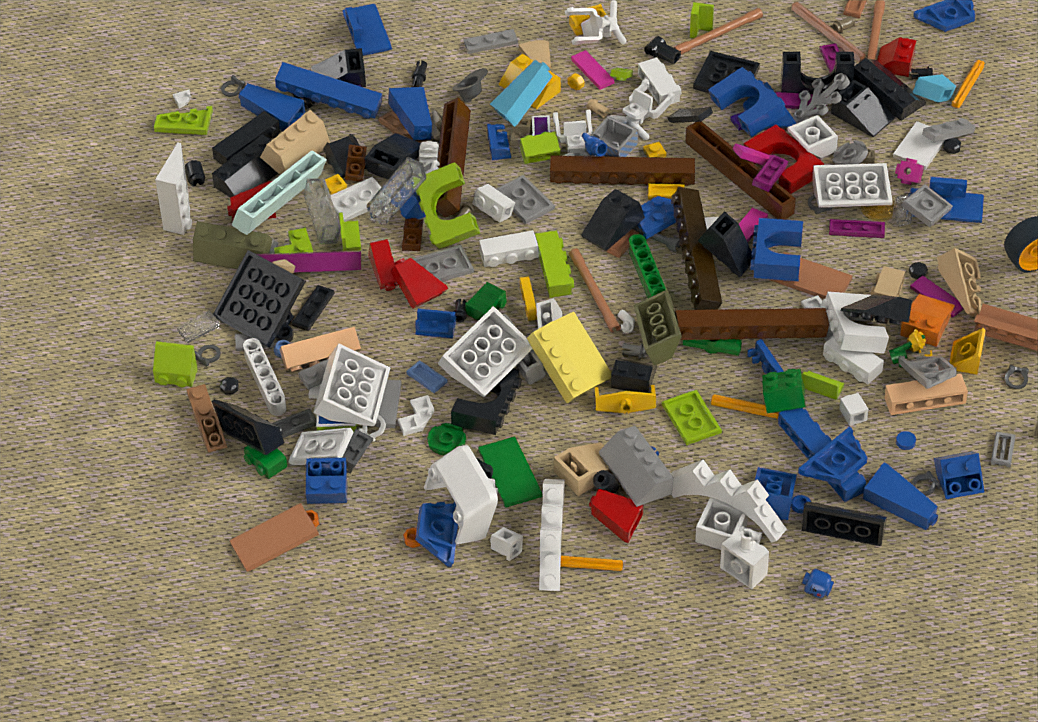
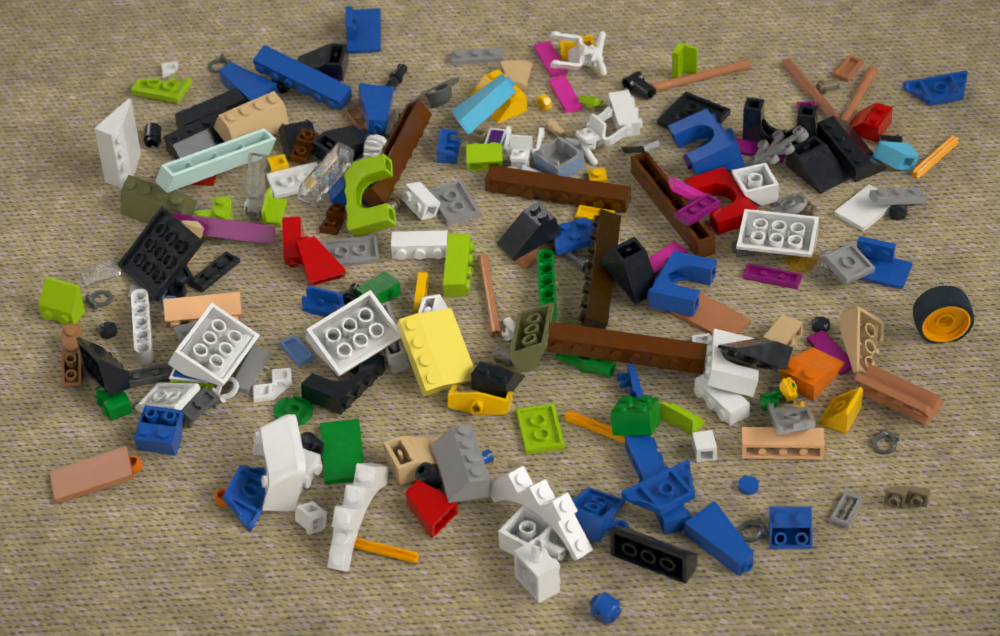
camera: 15 degrees right, 5 degrees down
(563, 33) = (547, 54): none -> dark pink tile
(594, 145) = (534, 160): blue animal -> none
(916, 171) = (843, 229): dark pink brick -> none

